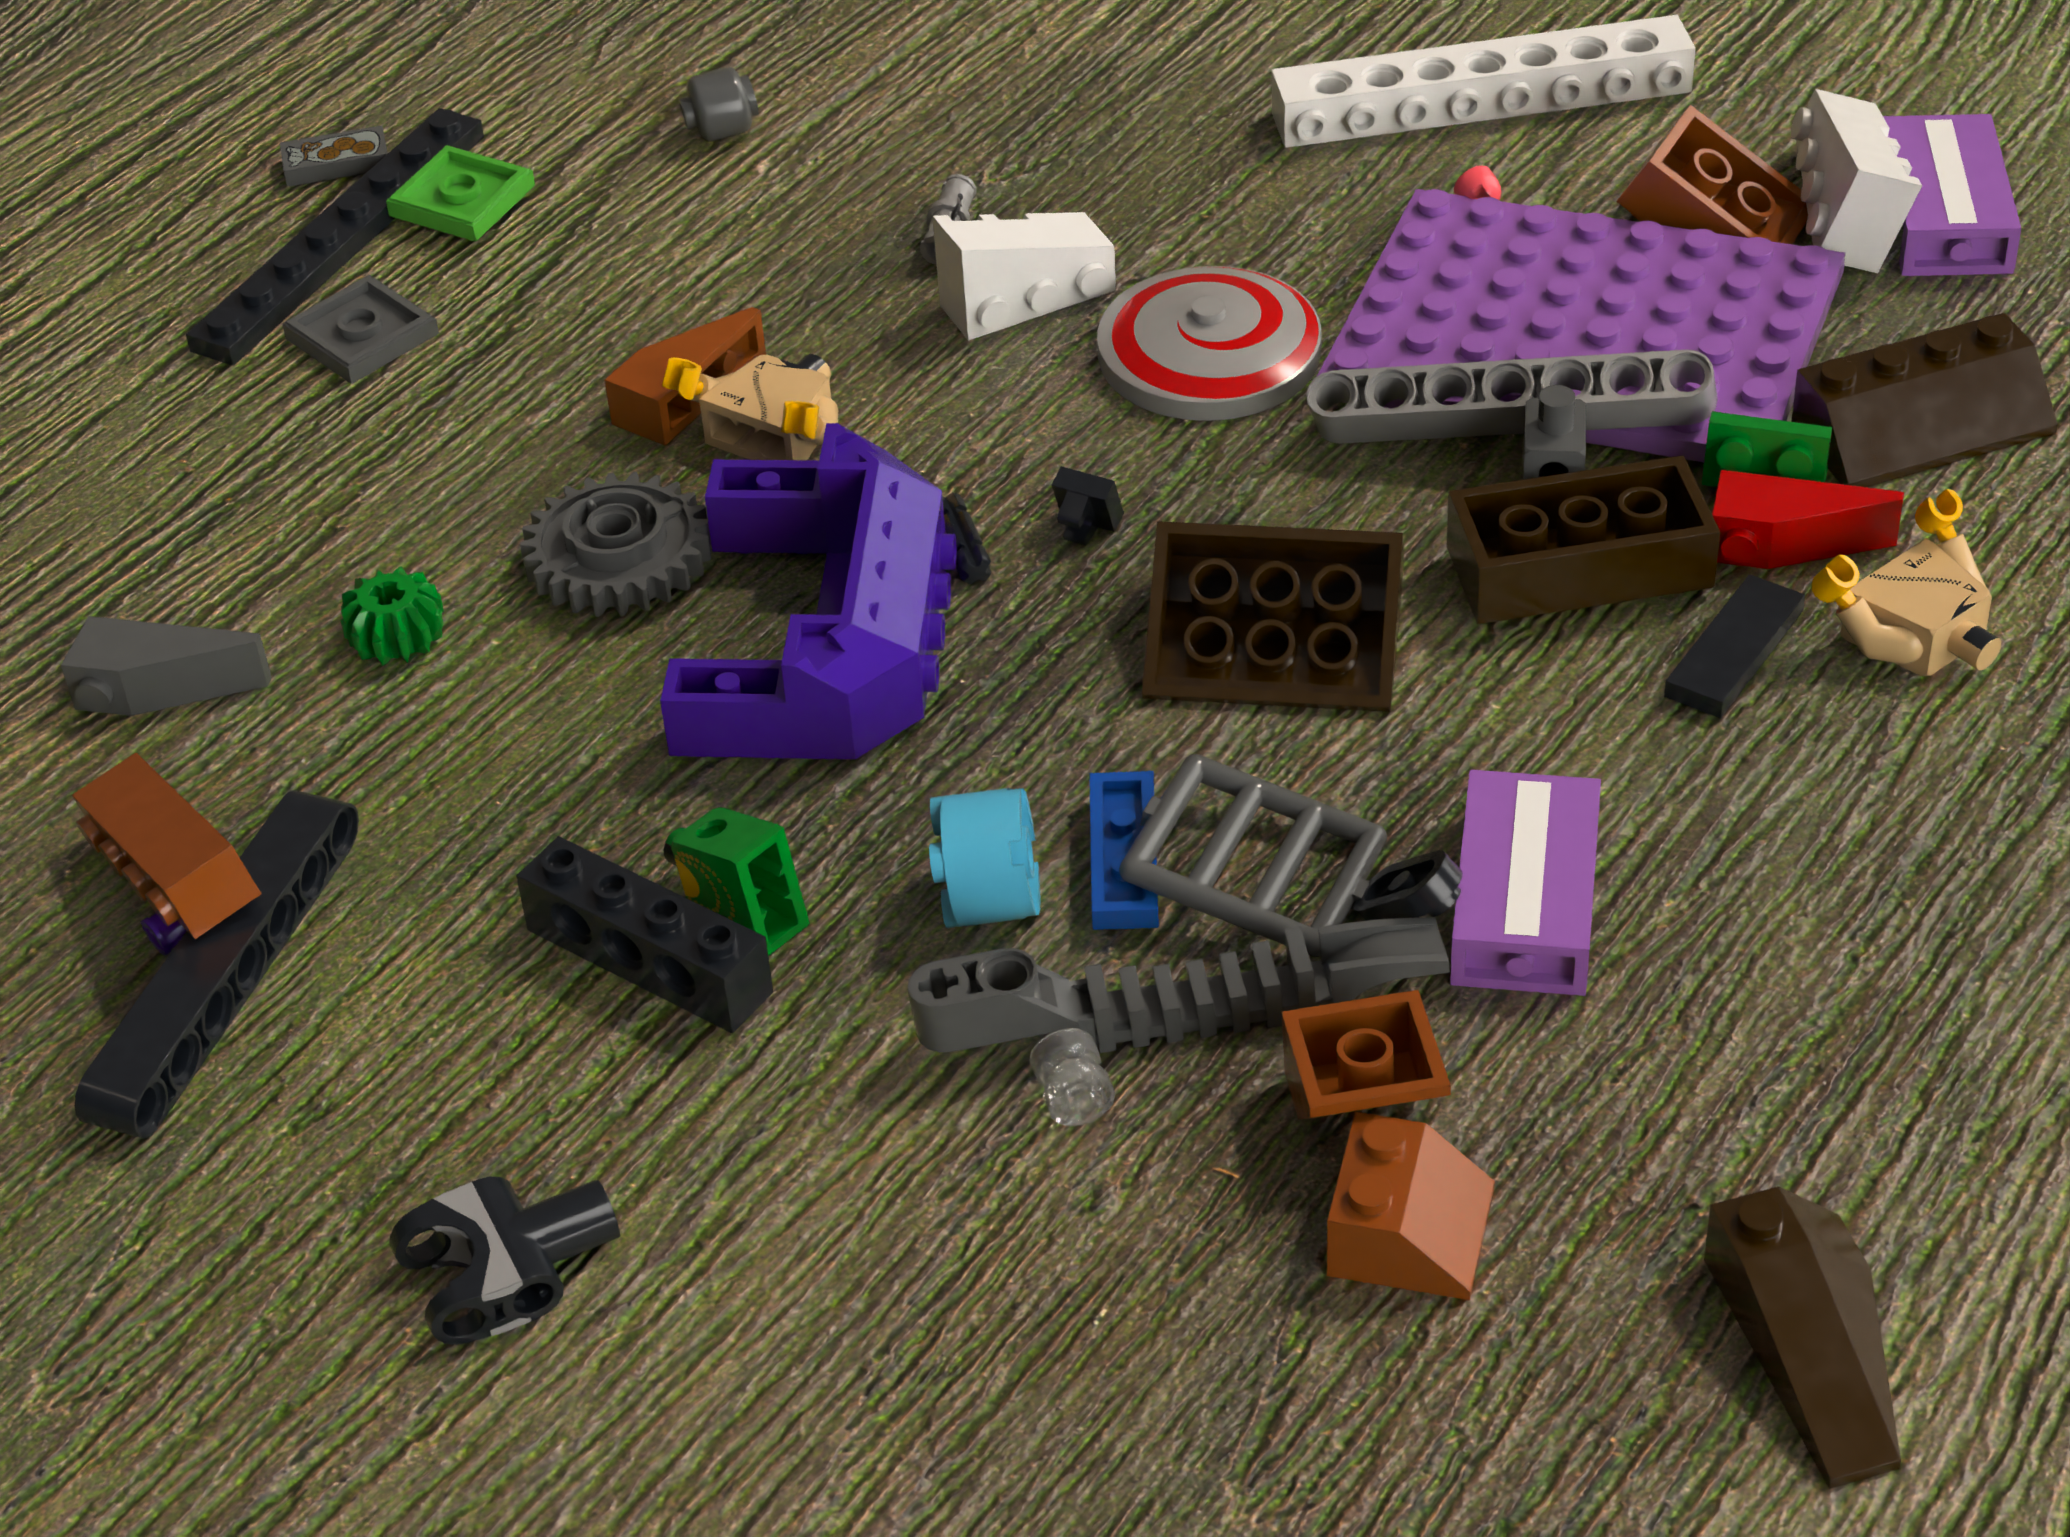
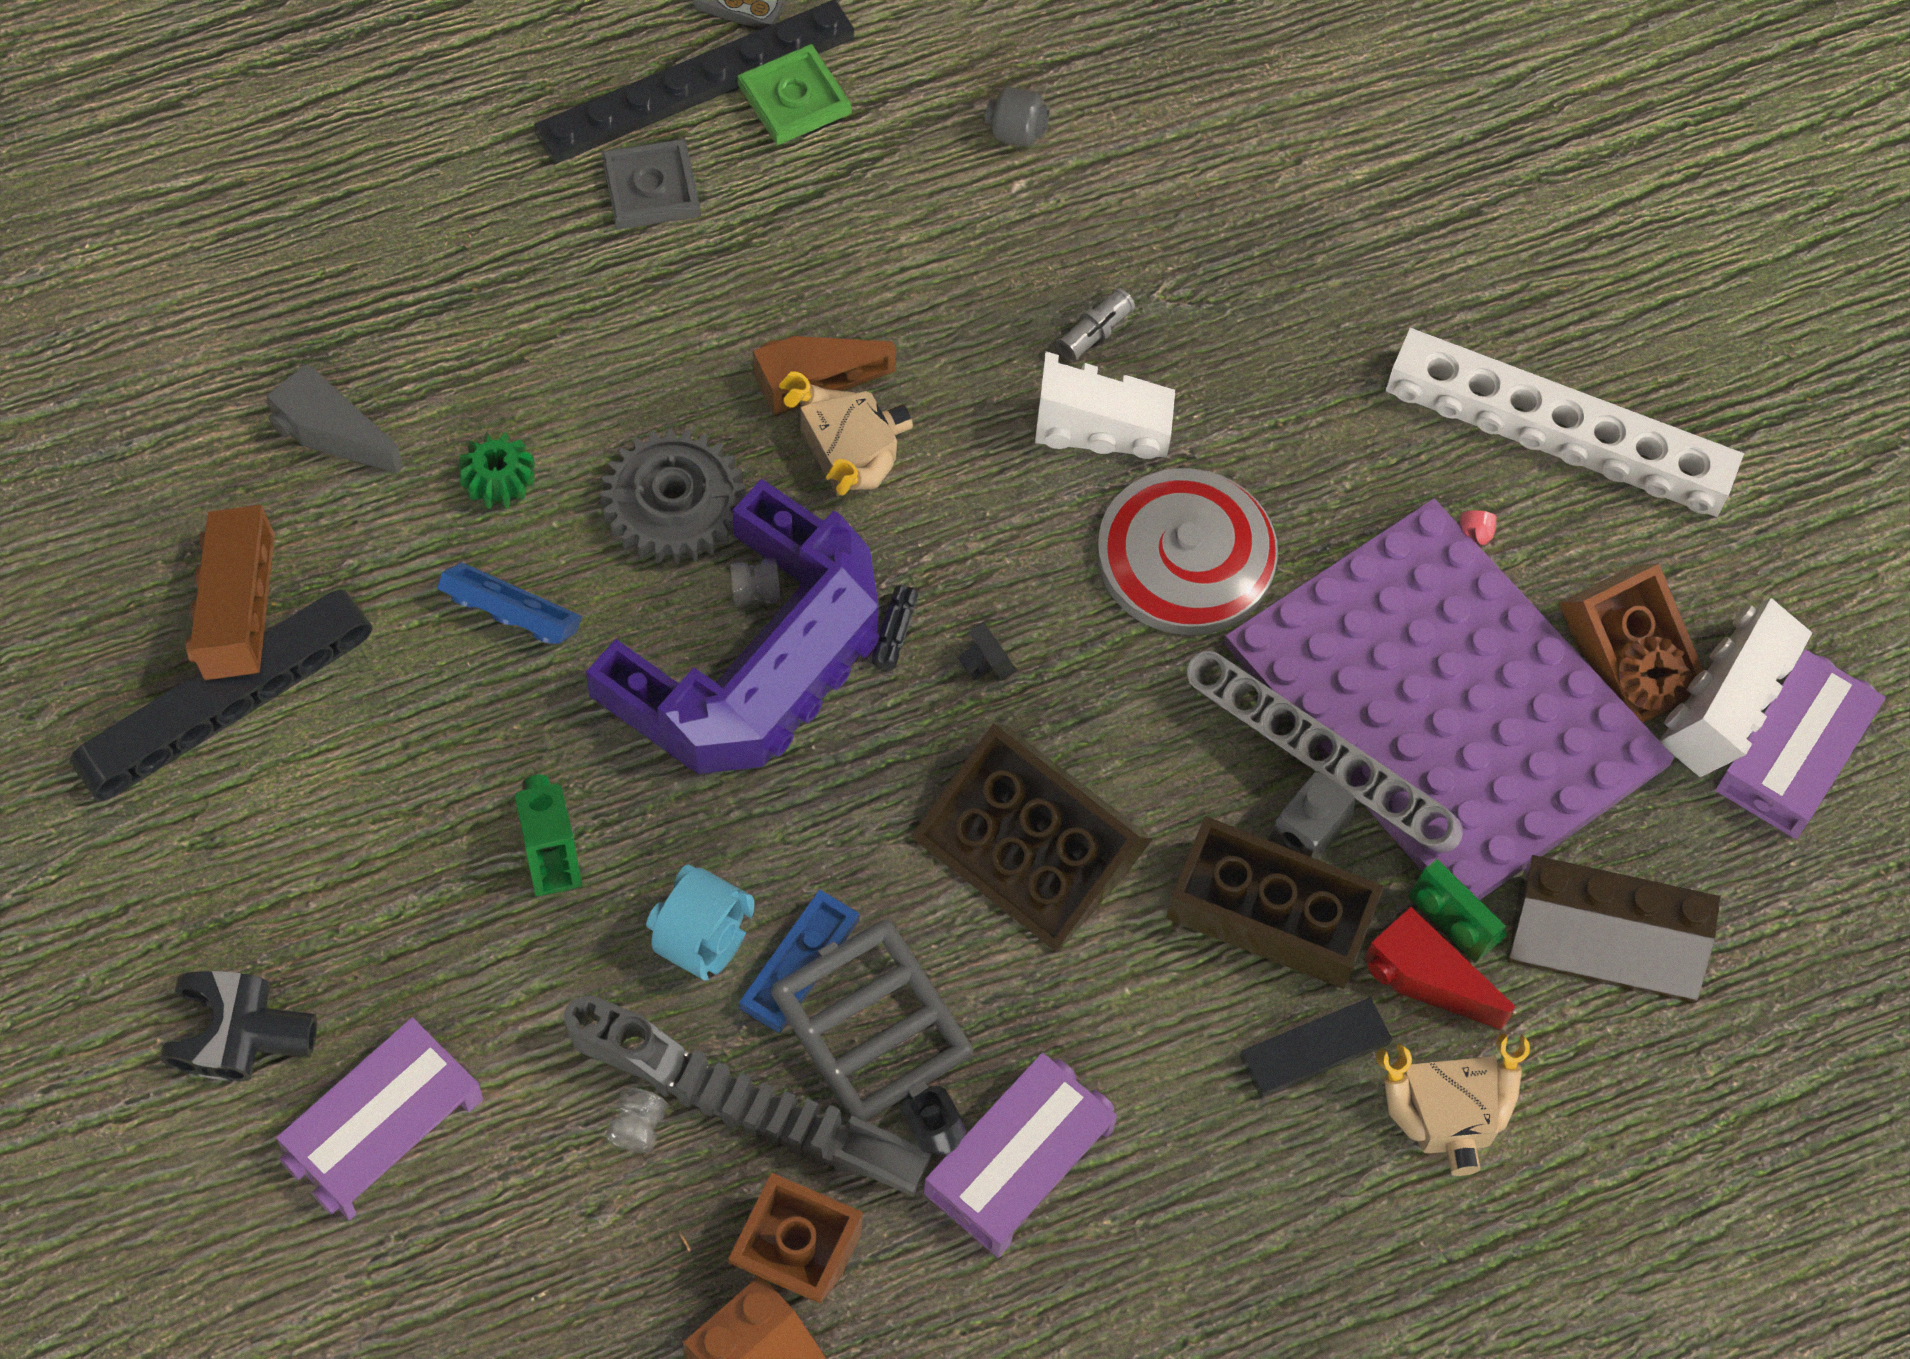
camera: 25 degrees right, 20 degrees up
(506, 718) = (509, 603): none -> blue plate
(646, 934) = (468, 841): black brick -> none
(757, 1239) = (375, 1116): none -> medium lavender panel
(778, 566) = (755, 582): none -> clear wheel
(1770, 217) = (1643, 690): none -> dark orange gear

